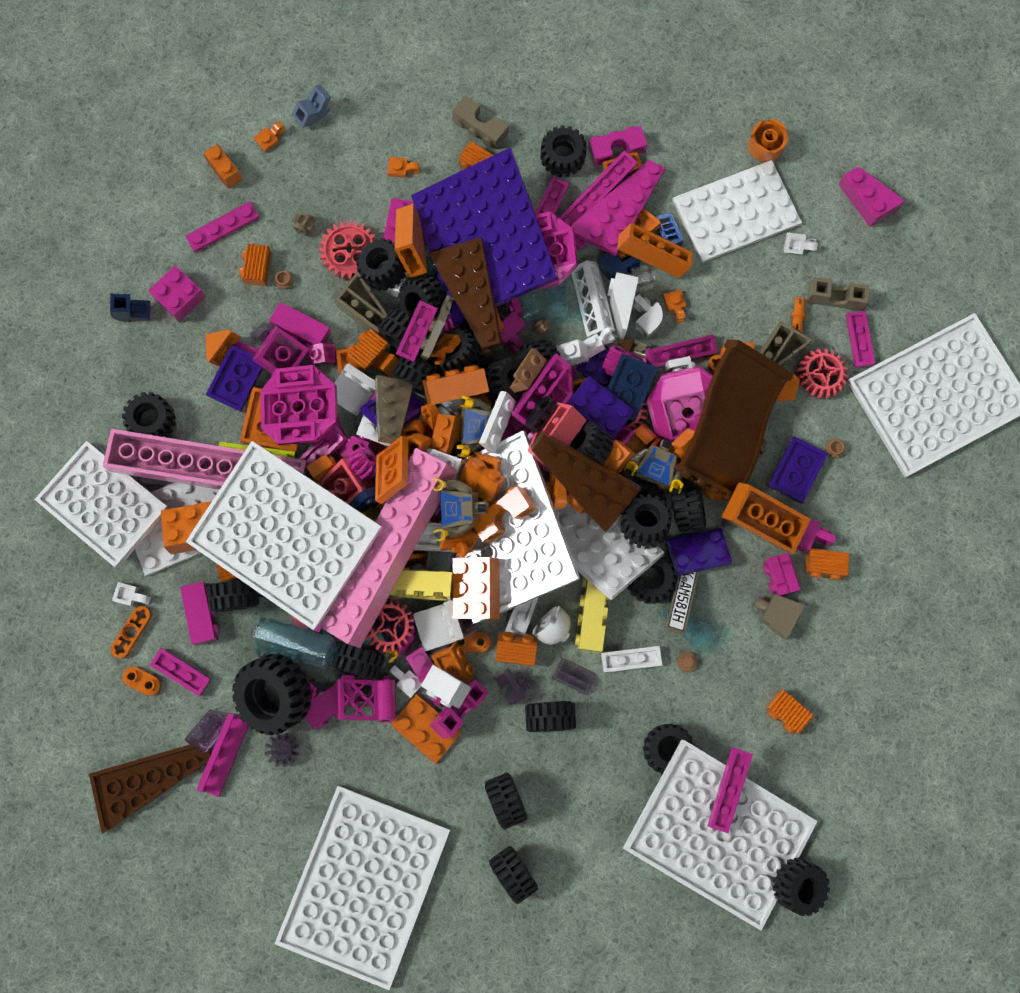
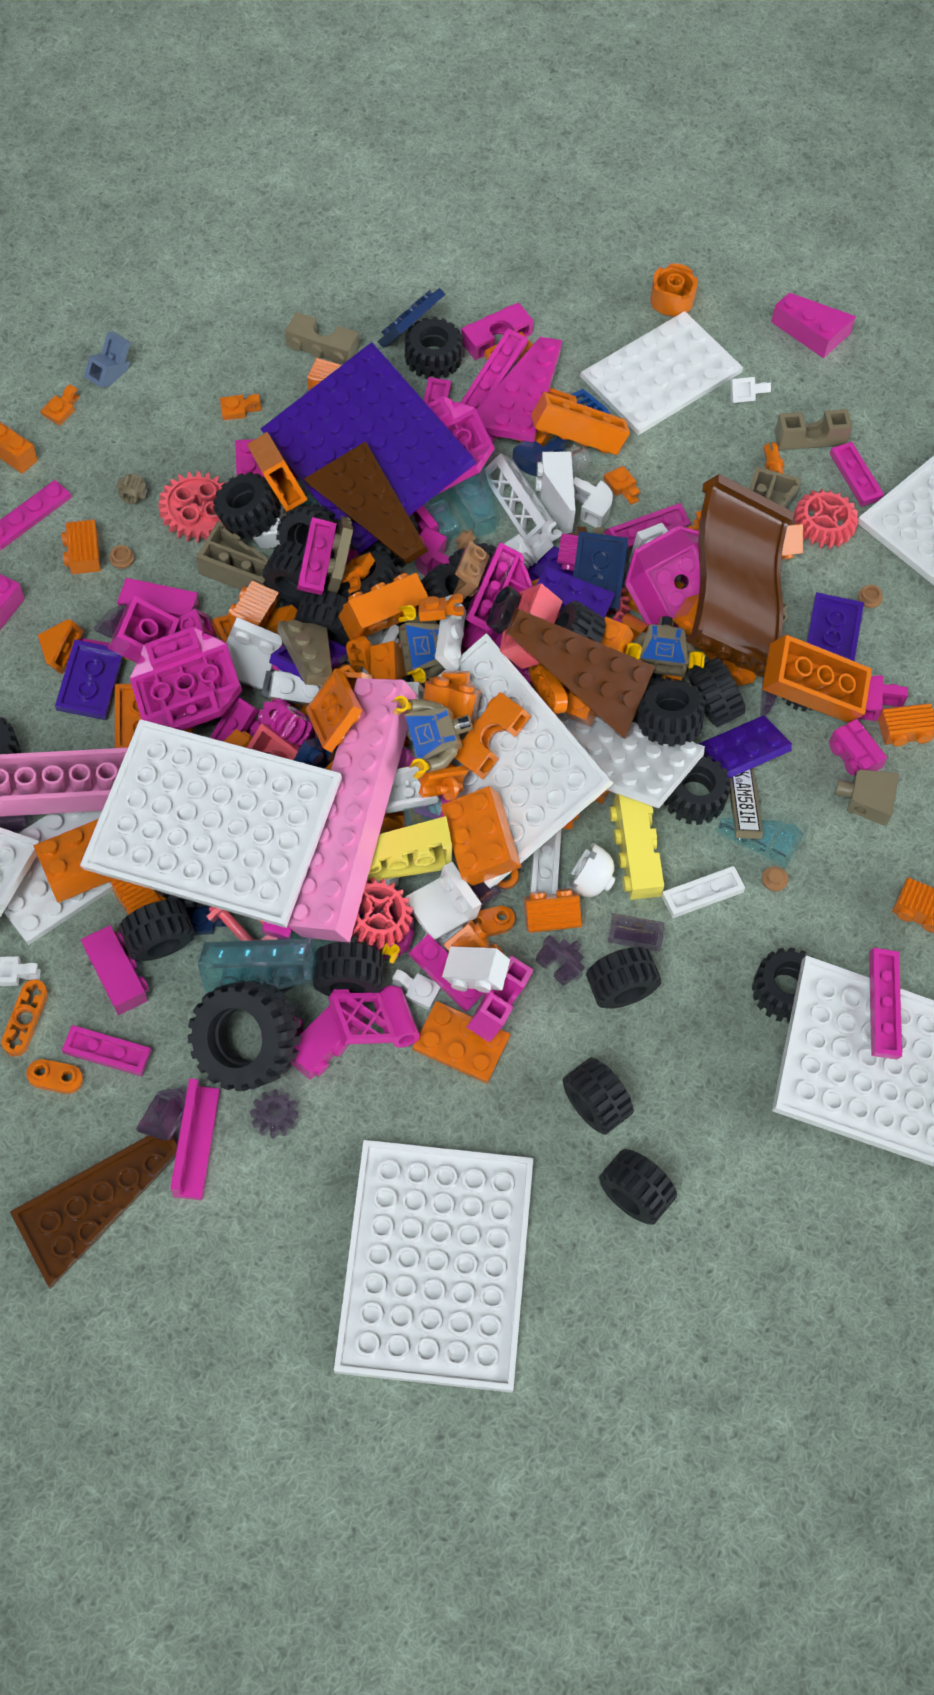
camera: 15 degrees left, 15 degrees down
(491, 402) = (437, 608): none -> orange plate
(551, 121) = (409, 316): none -> dark blue plate

